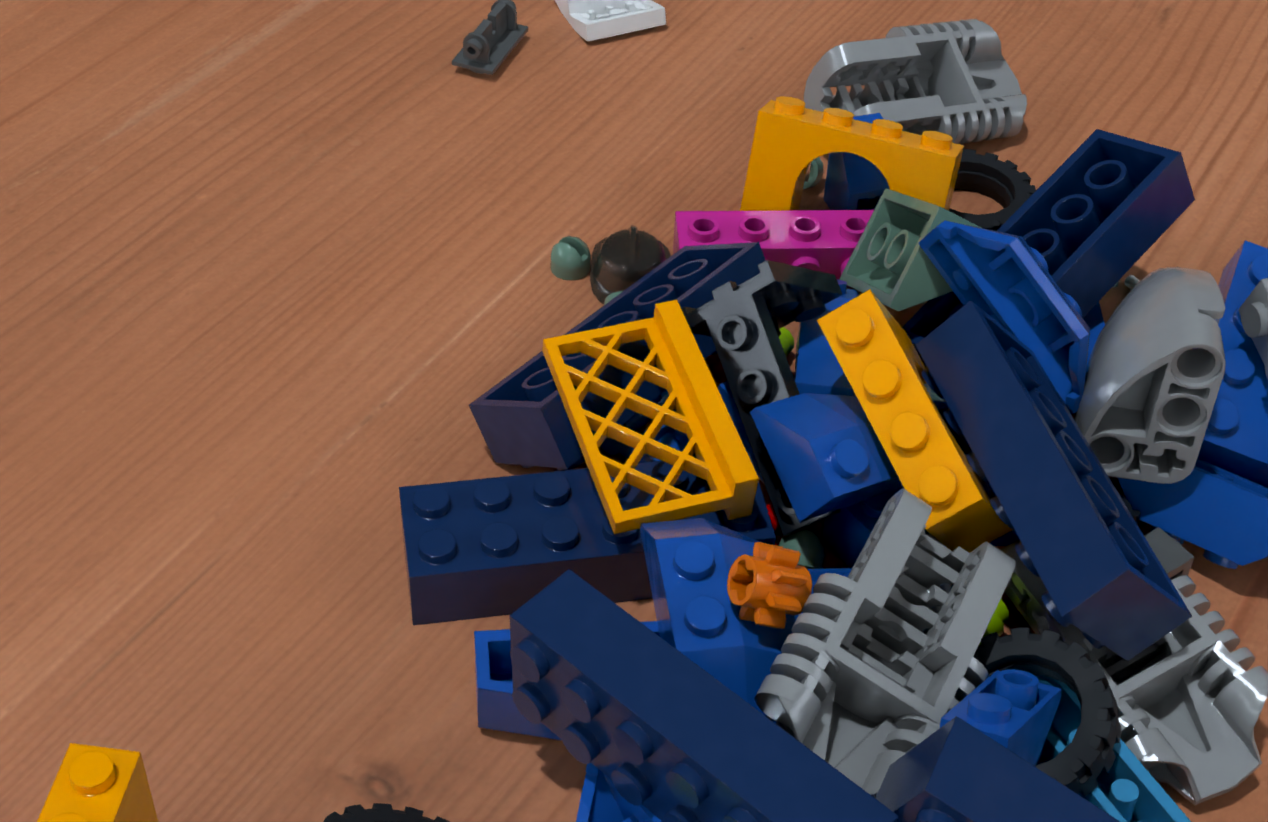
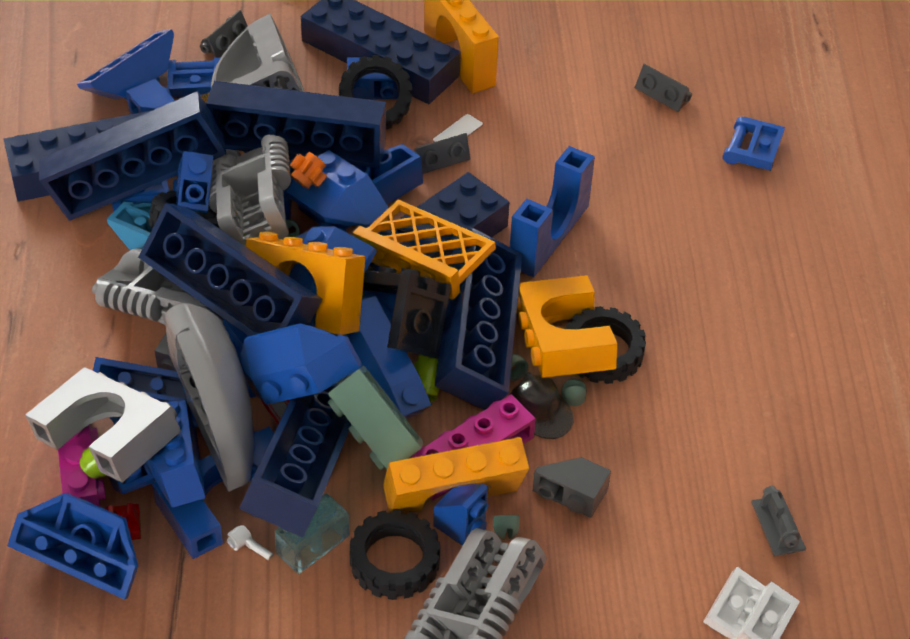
camera: 145 degrees right, 5 degrees up
(289, 768) = (466, 124): none -> white sticker
(408, 713) = (444, 153): none -> dark grey hinge
(423, 434) = (540, 228): none -> blue arch
(469, 315) = (622, 326): none -> black tyre
(539, 228) = (558, 349): none -> light orange arch
(685, 160) = (573, 483): none -> dark grey slope

